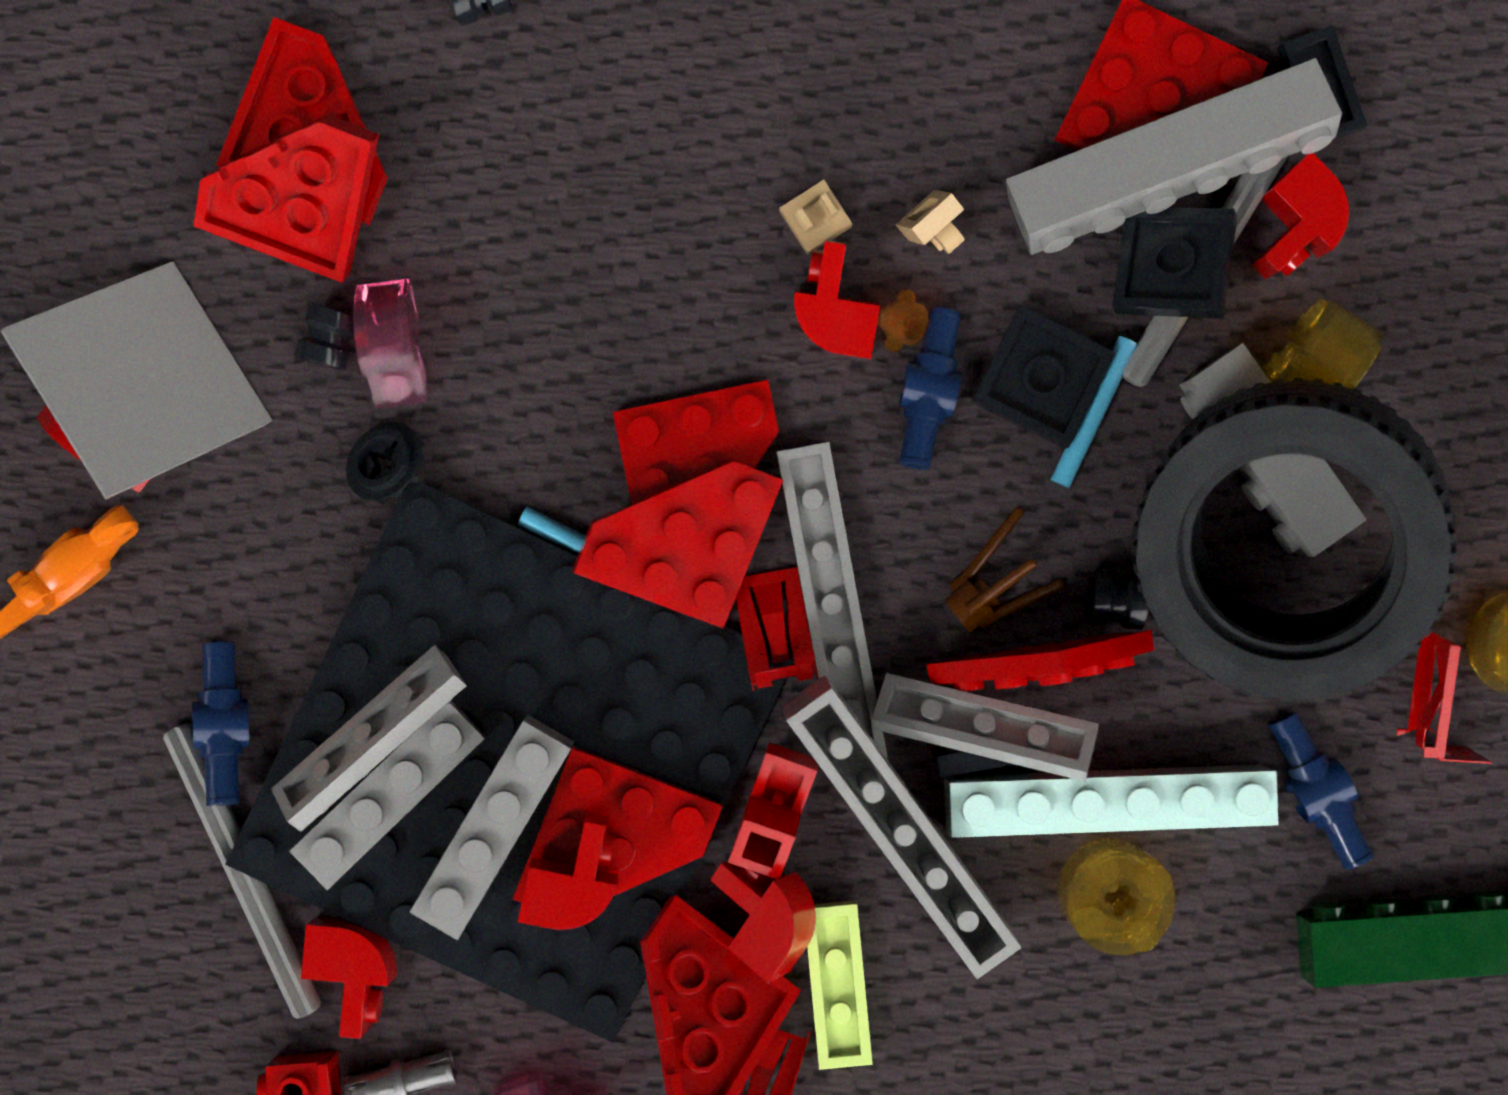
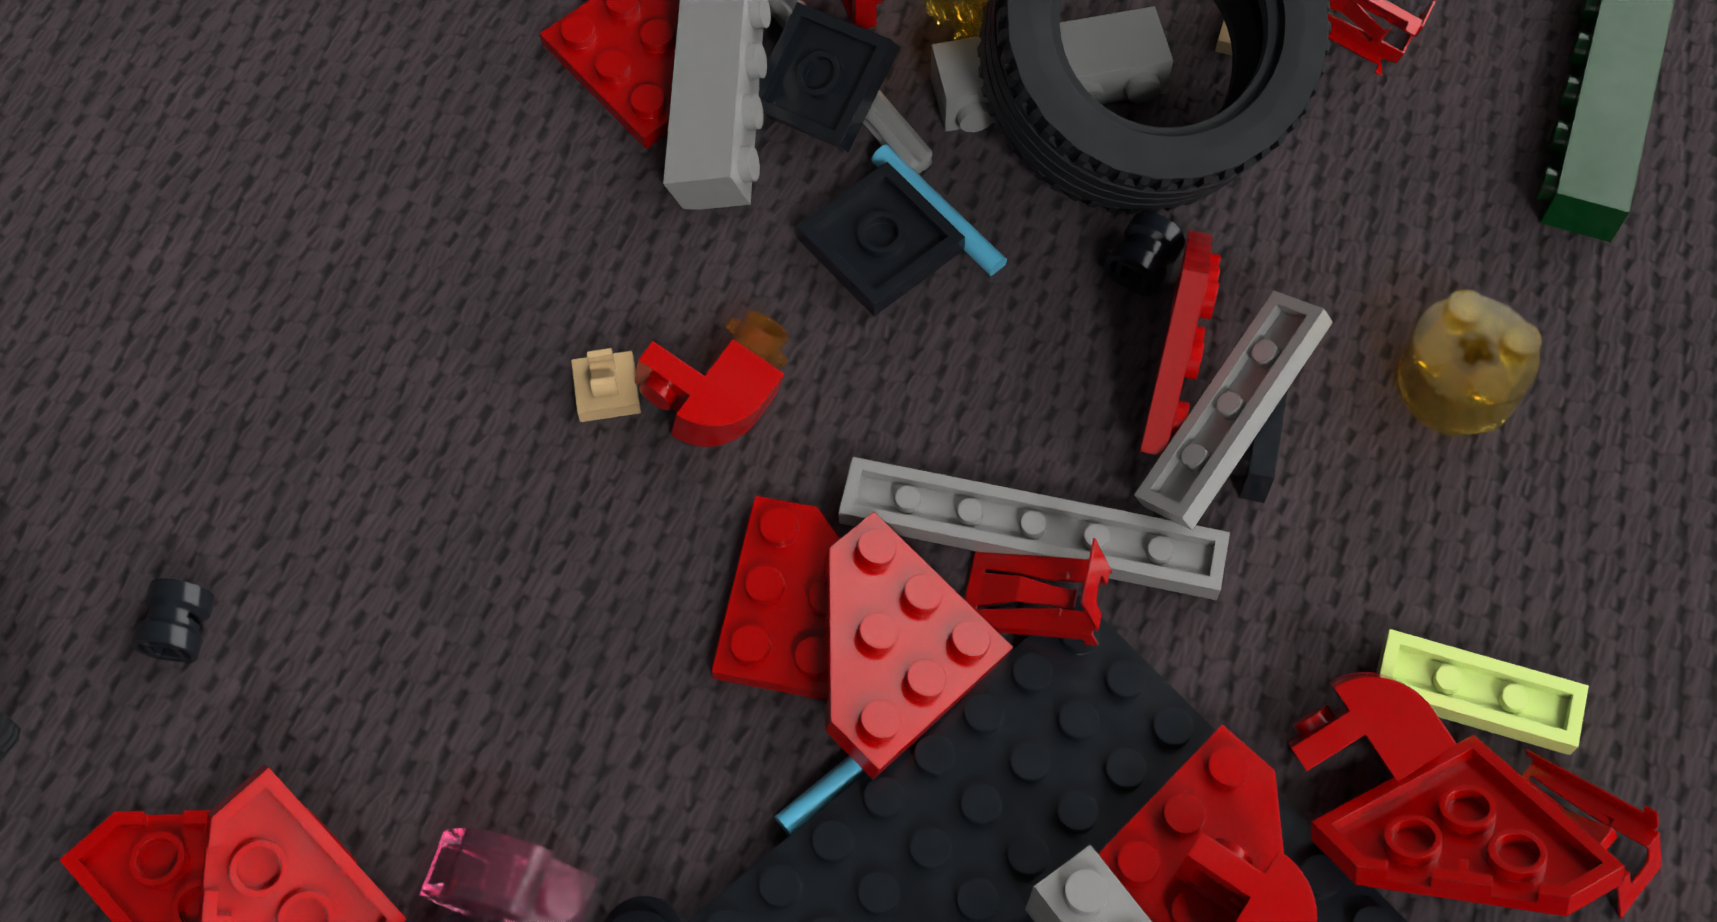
camera: 65 degrees left, 25 degrees down
(773, 811) = (1253, 682): red brick -> none
(900, 826) = (1313, 533): light grey brick -> none
(930, 389) = (844, 343): dark blue pin -> none
(932, 221) = (670, 273): tan tile -> none
(975, 602) = (1091, 386): reddish brown plant -> none
(1111, 801) = (1358, 341): light aqua brick -> none
(1321, 790) = (1416, 148): dark blue pin -> none

